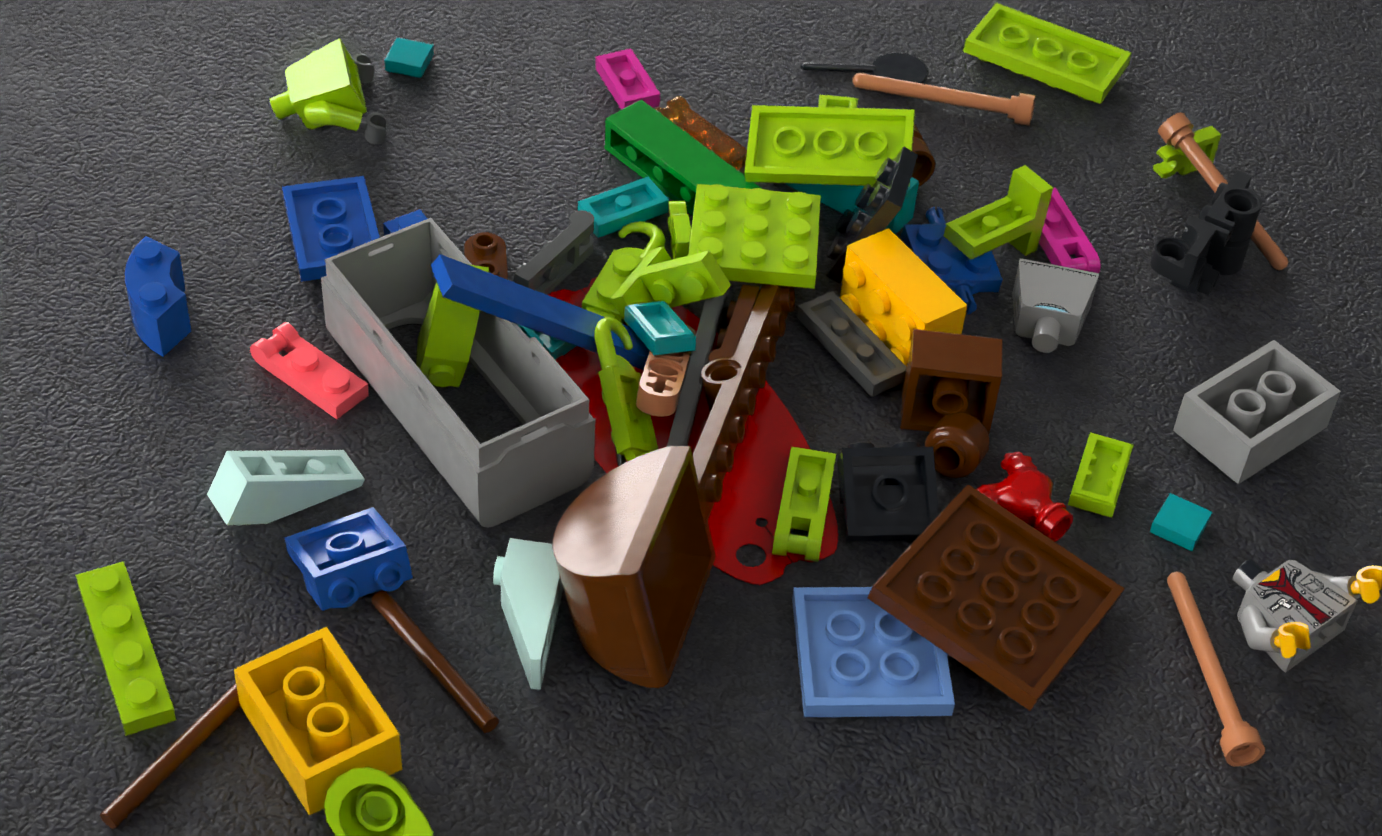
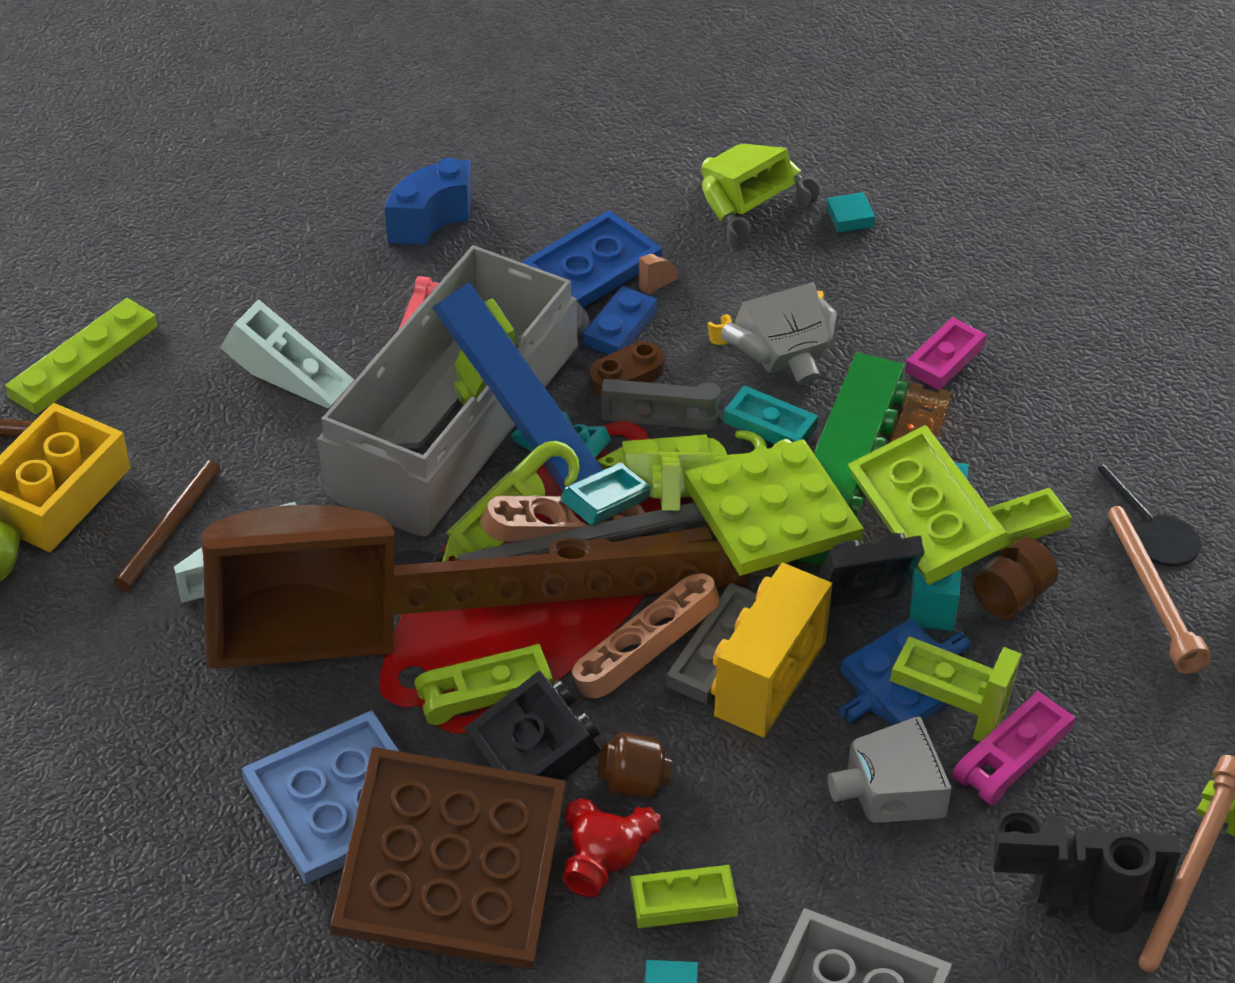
camera: 65 degrees right, 0 degrees up
(349, 559) = (228, 427): blue plate -> none
(385, 198) = (655, 273): none -> nougat tile
(534, 152) = (781, 331): none -> light grey torso
(820, 379) = (607, 668): none -> nougat beam
(950, 376) = (696, 722): reddish brown brick -> none

